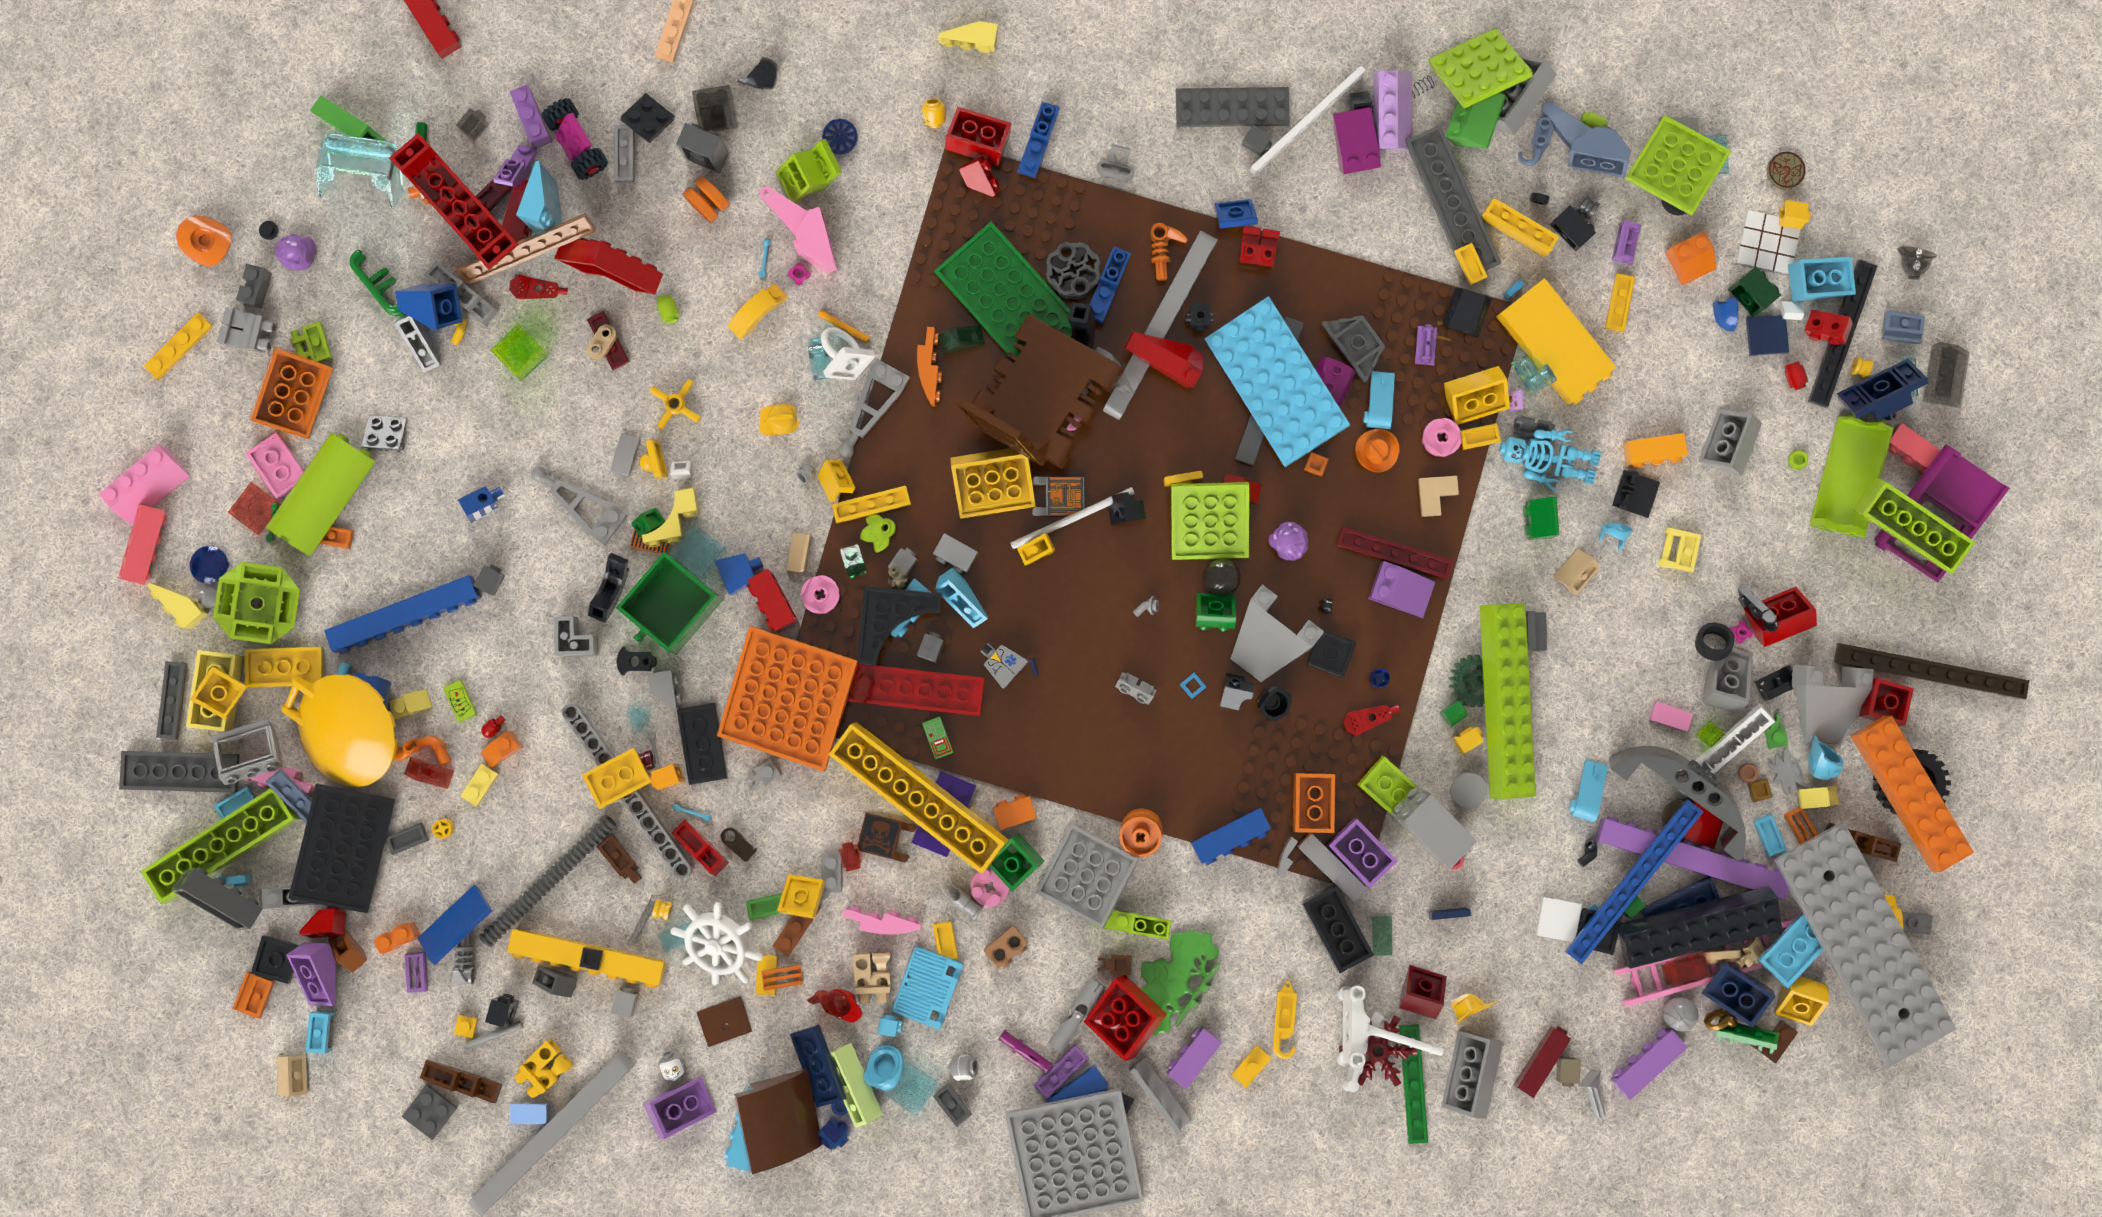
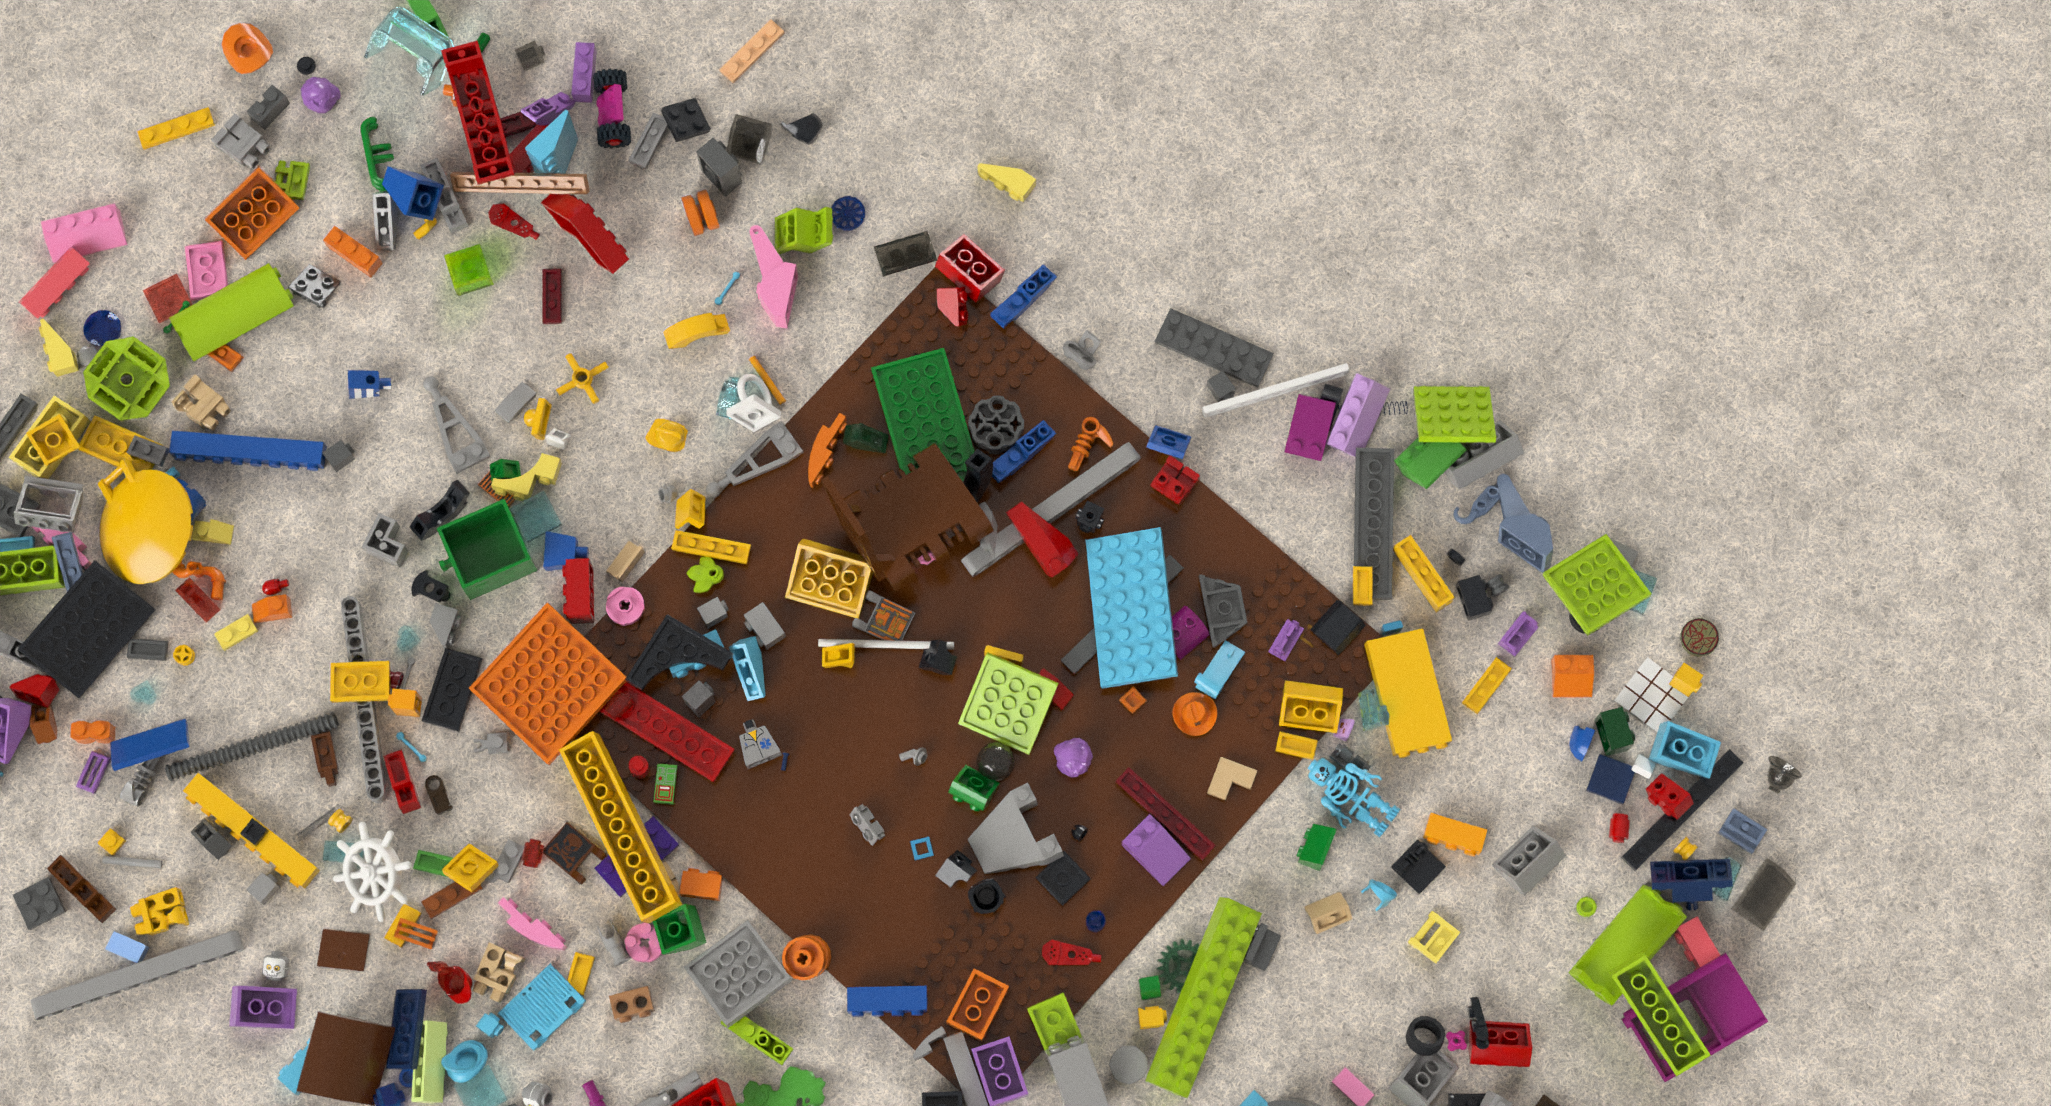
camera: 25 degrees right, 10 degrees down
(312, 659) = (148, 451): none -> flat silver plate
(344, 593) = (207, 406): none -> tan hips
(403, 385) = (352, 251): none -> orange brick
(424, 879) = (143, 692): none -> clear light blue tile
(460, 701) = (257, 550): lime tile -> none
(502, 1010) = (151, 840): black brick -> none
(602, 342) = (546, 296): tan plate -> none
(668, 309) = (618, 293): lime brick -> none
(799, 268) = (750, 311): dark pink plate -> none
(853, 561) = (669, 590): clear green bracket -> none
(897, 578) = (701, 622): dark tan hinge -> none
(907, 735) = (639, 767): none -> red brick
(913, 150) = (905, 253): none -> clear smoke slope
(933, 113) = (941, 230): yellow head -> none
(1118, 964) = (726, 1071): reddish brown plate -> none
(1452, 435) = (1258, 740): bright pink plate -> none
(1593, 120) = (1539, 509): lime brick -> none

